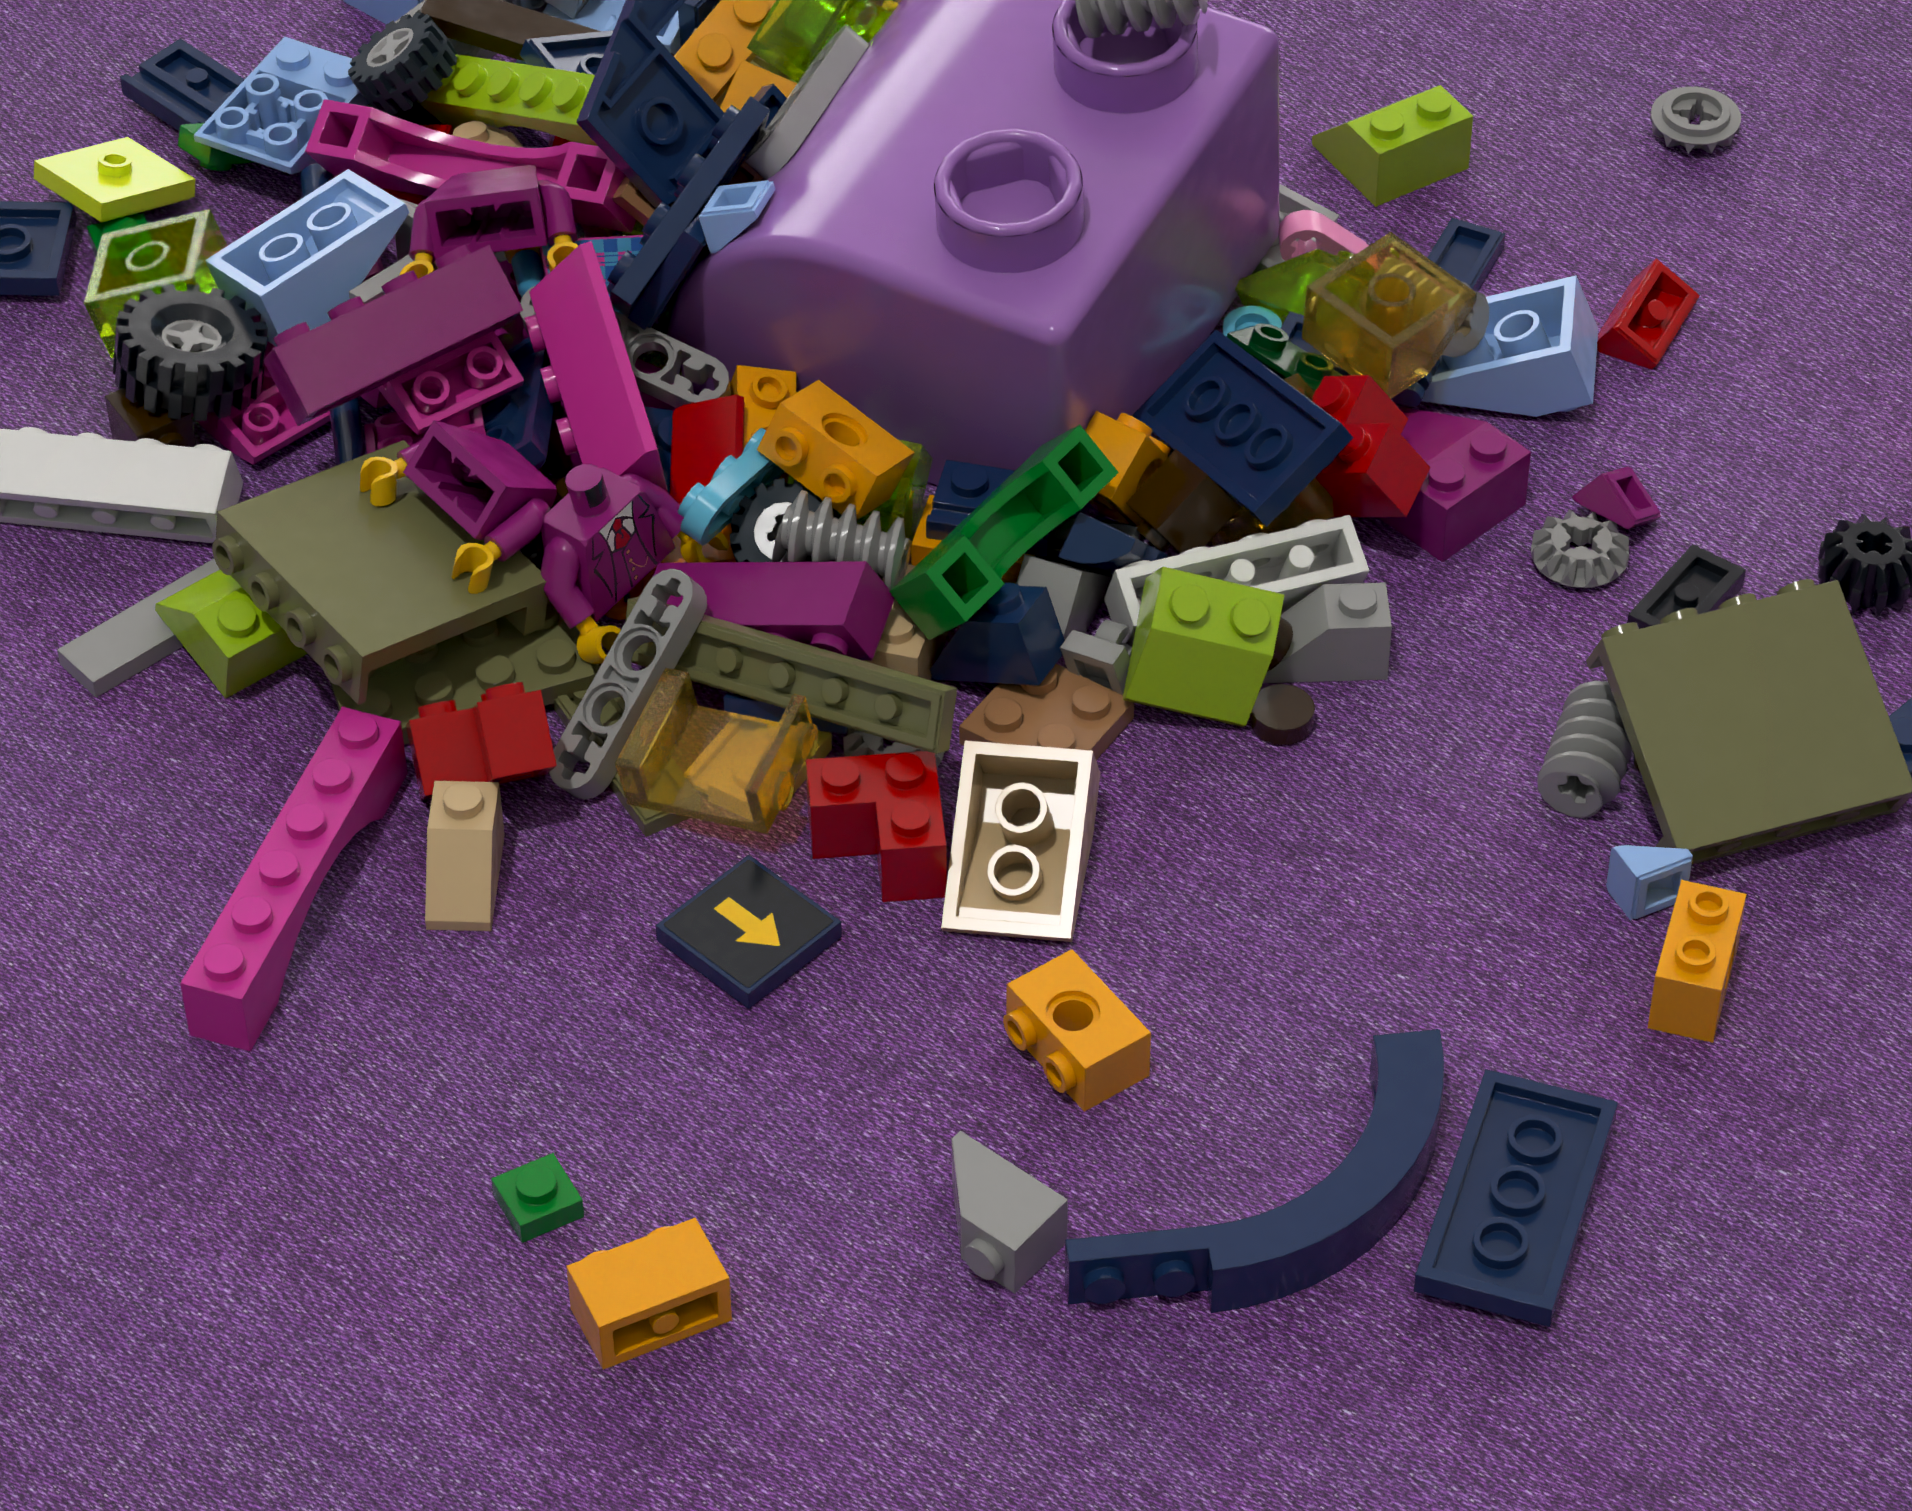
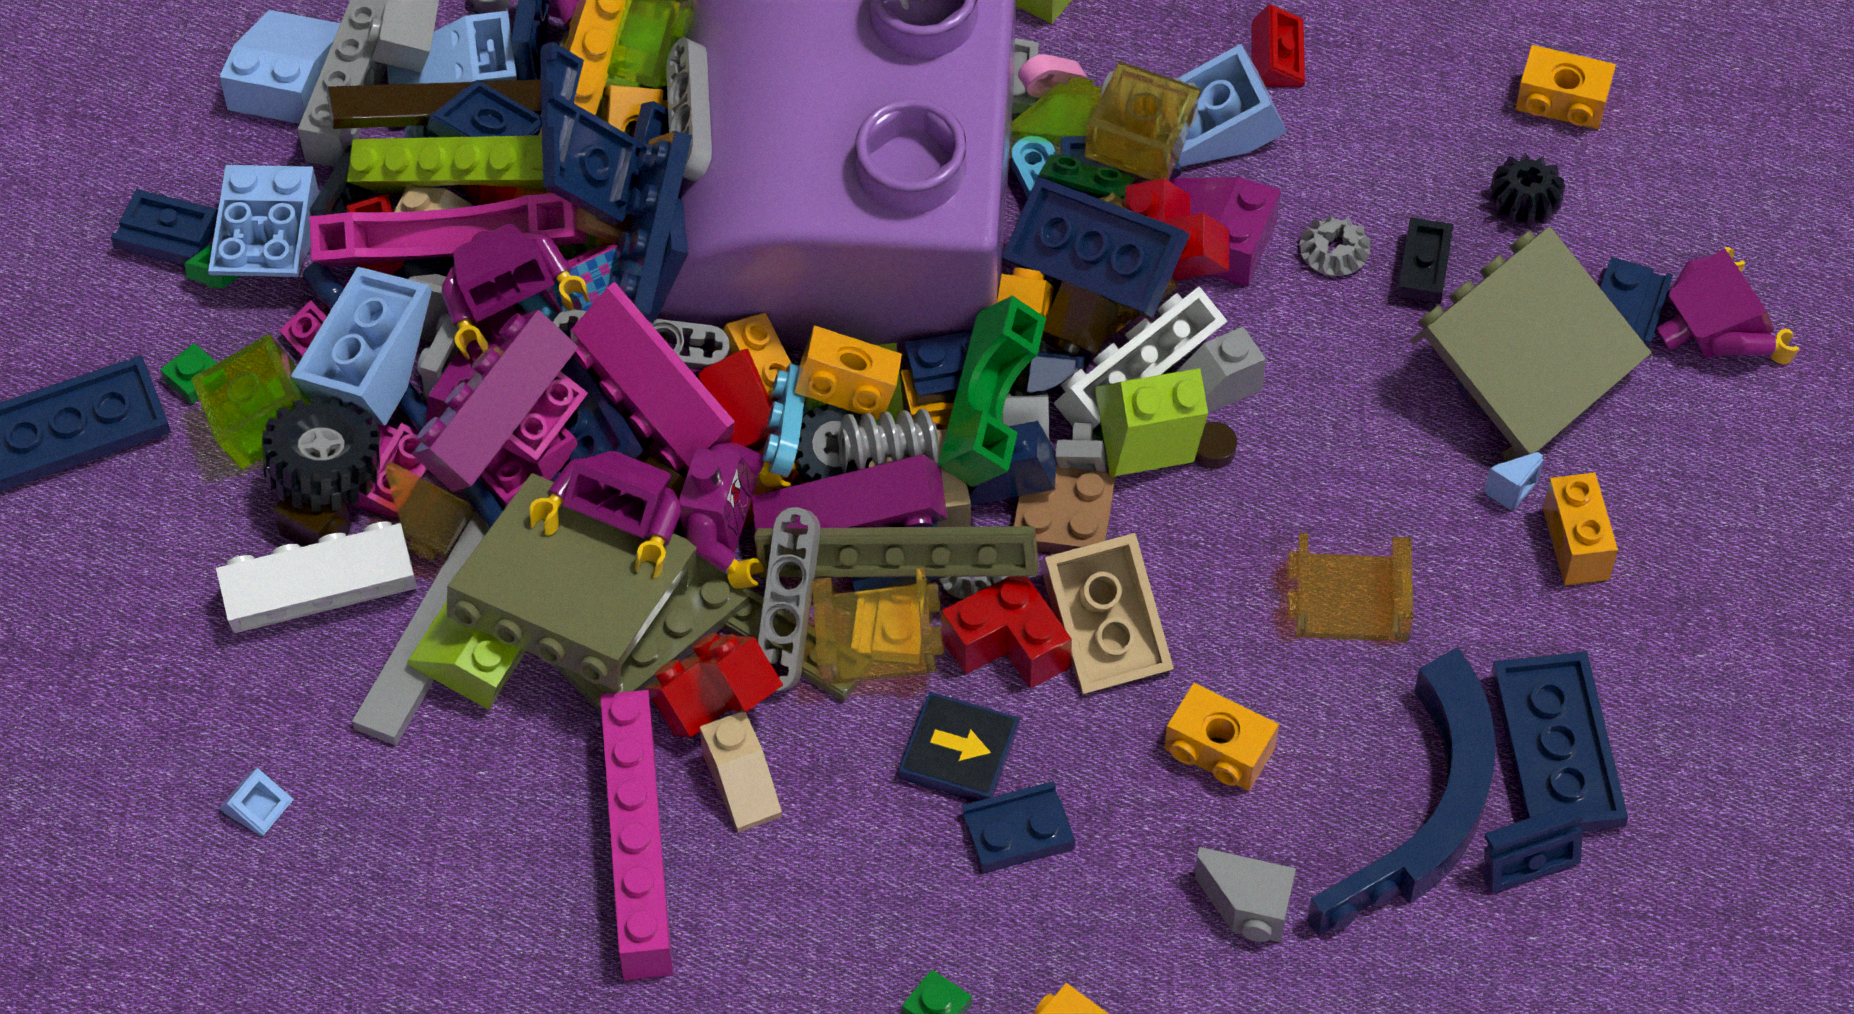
camera: 25 degrees left, 10 degrees up
(114, 179) = (159, 324): neon yellow plate -> none
(270, 446) = (427, 513): none -> clear yellow slope
(403, 63) = (338, 162): black wheel -> none
(732, 211) = (699, 220): light blue slope -> none
(764, 1042) = (1018, 827): none -> dark blue plate
(1350, 935) = (1351, 593): none -> clear yellow panel
(1398, 1295) = (1533, 848): none -> dark blue plate
(1468, 251) = (1135, 42): dark blue tile -> none
(1585, 753) = (1429, 398): light grey piece -> none
(1619, 498) = (1342, 199): magenta slope -> none

